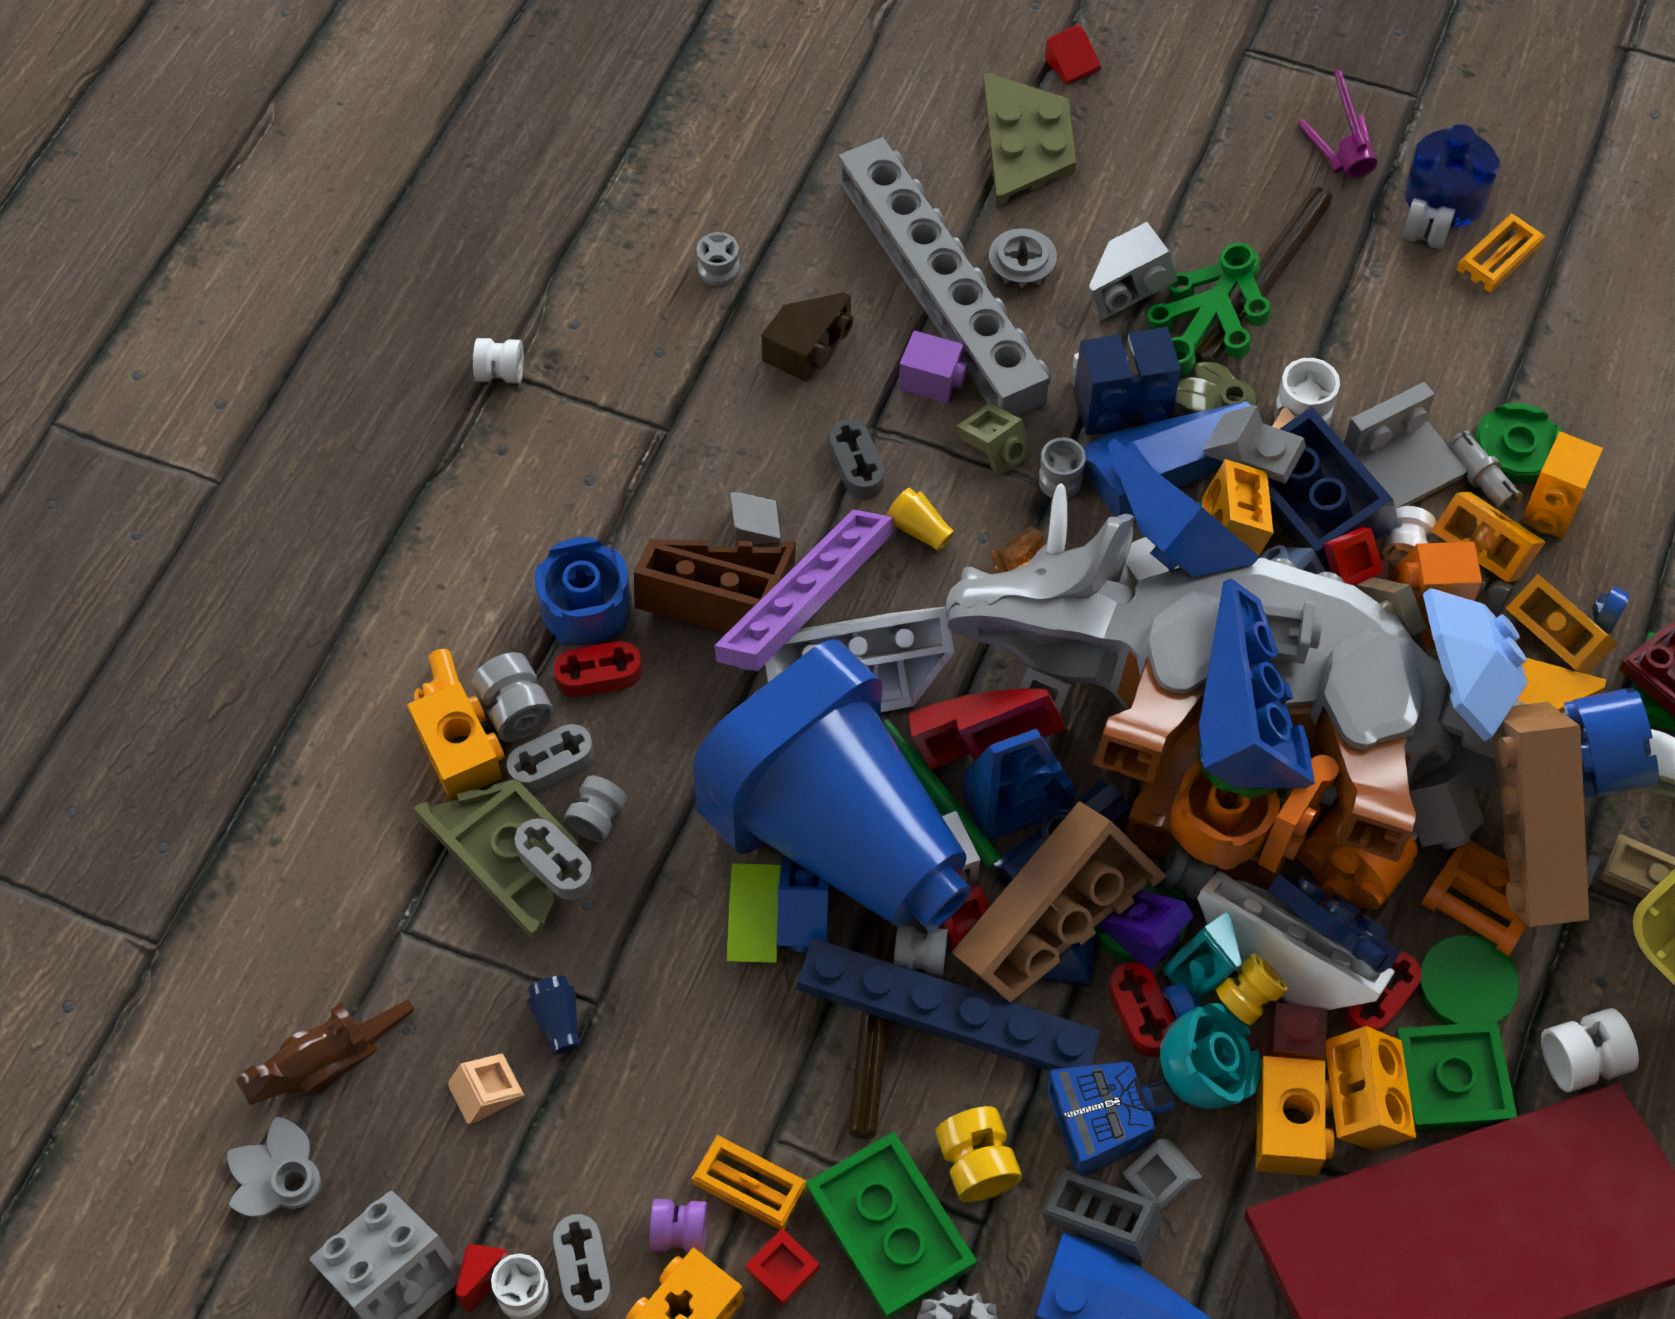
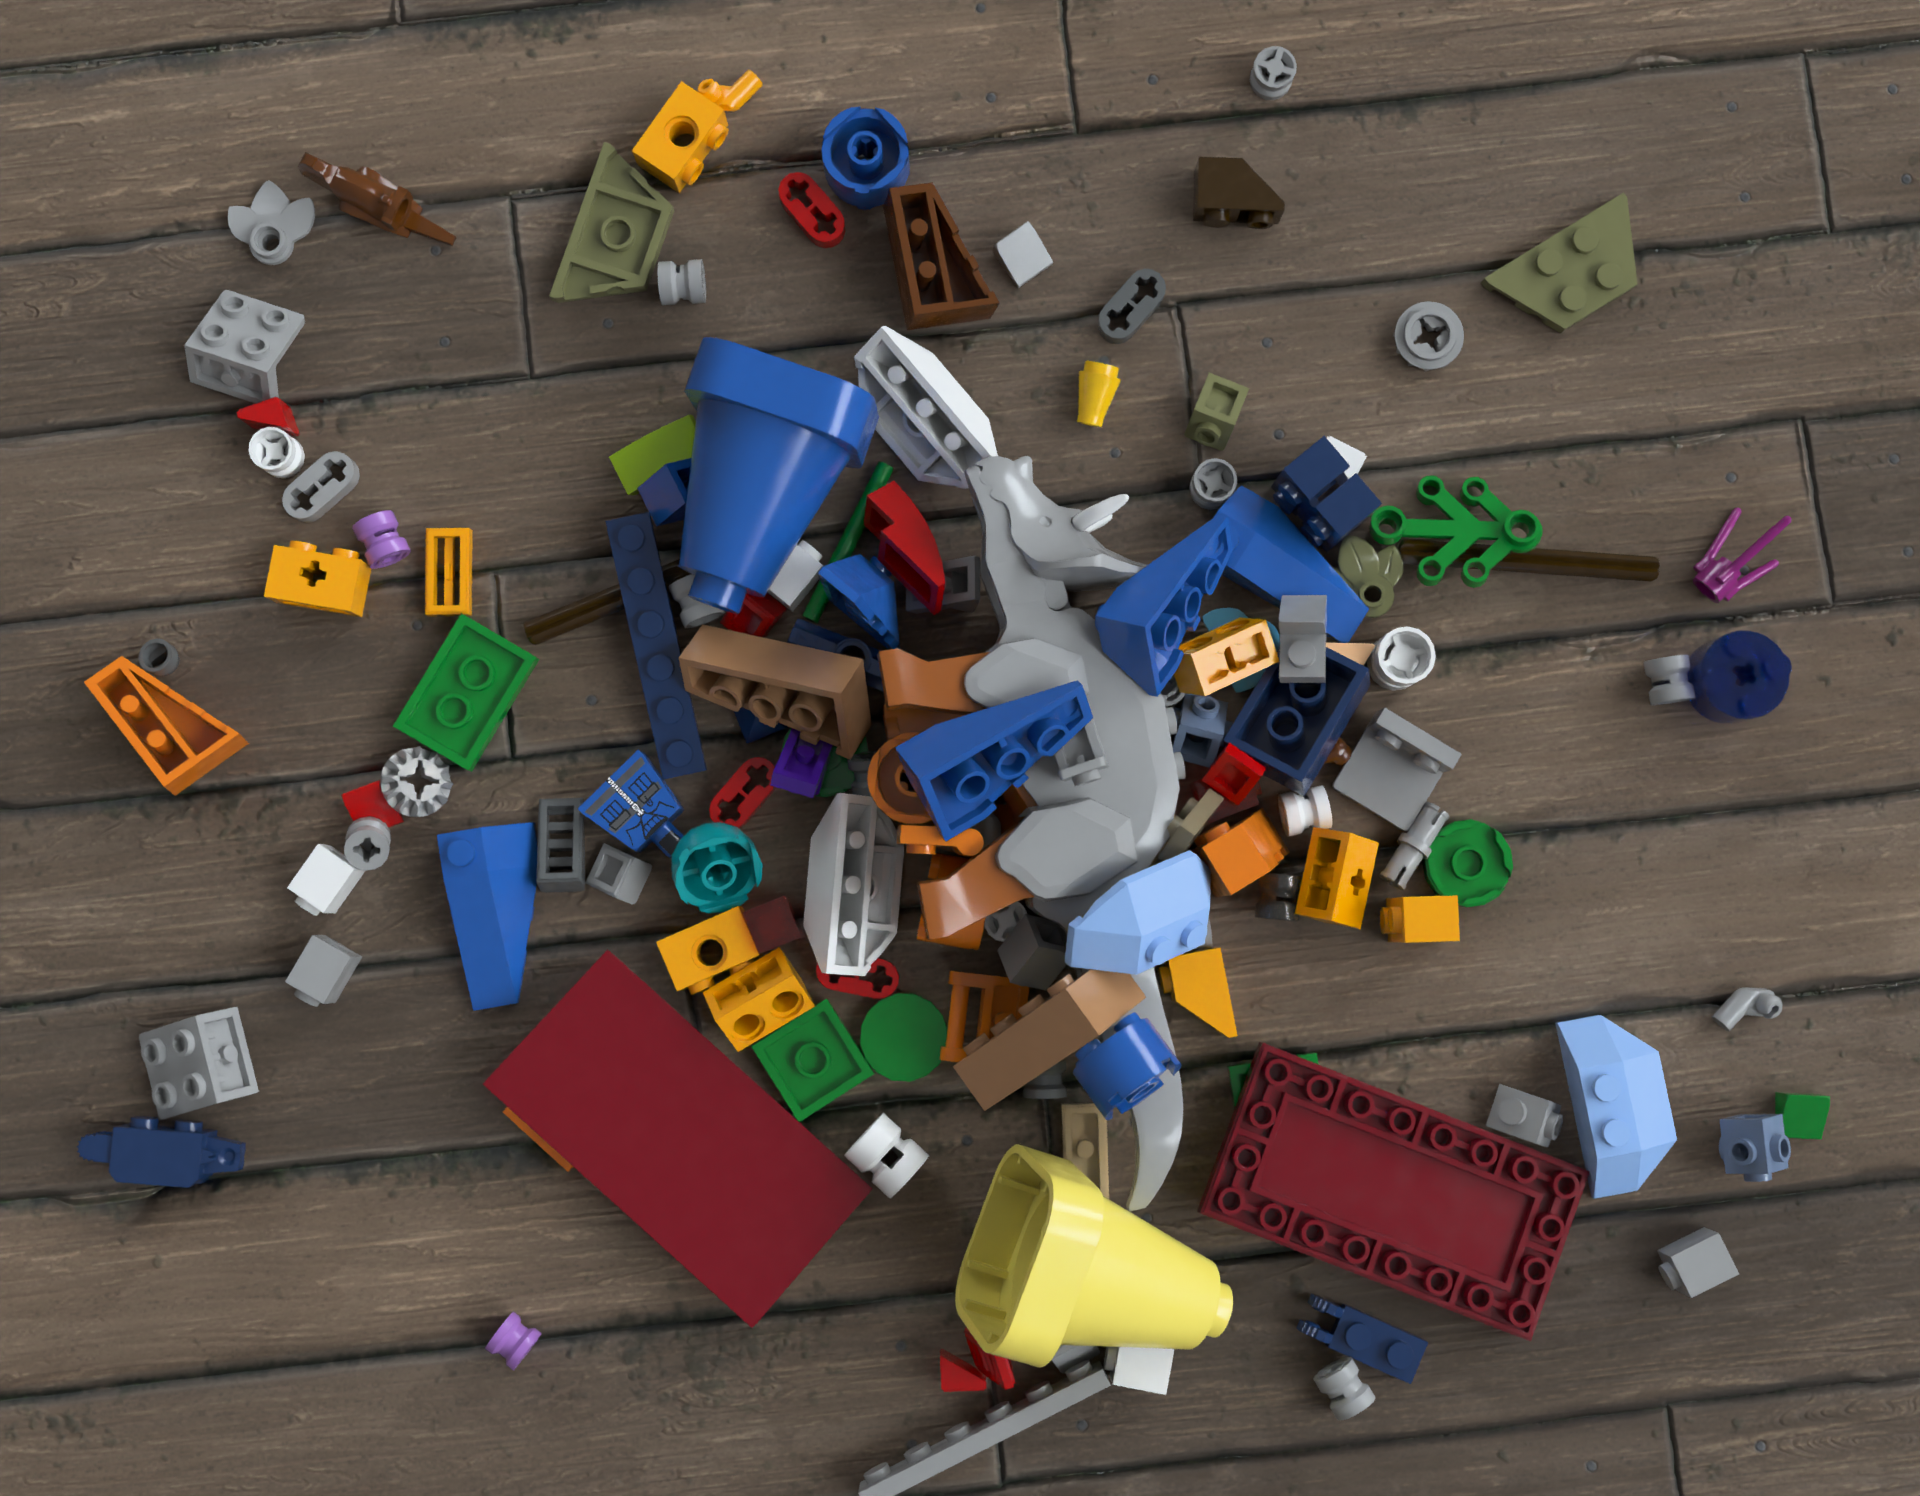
camera: 60 degrees right, 25 degrees up
(484, 1087) = (419, 336): light nougat slope -> none
(513, 697) = (744, 154): light grey wheel -> none
(551, 758) = (717, 212): light grey beam -> none
(555, 1011) = (499, 352): dark blue cone -> none
(561, 851) = (604, 273): light grey beam -> none
(782, 1267) = (392, 631): red plate -> none
(803, 590) = (951, 336): medium lavender plate -> none
(932, 367) = (1258, 320): medium lavender brick -> none
(943, 278) = (1441, 147): light grey brick -> none
(976, 1148) = (539, 740): yellow wheel -> none
(1018, 550) = (1100, 488): clear orange tile -> none
(1071, 54) = (1694, 262): red slope -> none
(1131, 270) = (1459, 438): light grey slope -> none
(1180, 1000) = (758, 823): blue tile -> none
(1206, 958) = (796, 822): teal slope -> none
(1254, 986) = (793, 875): yellow wheel -> none
(1337, 920) = (877, 910): dark blue plate -> none
(1482, 272) = (1643, 750): light orange tile -> none
(1561, 625) = (1276, 977): light orange brick -> none
(1609, 608) = (1323, 1010): blue tile -> none

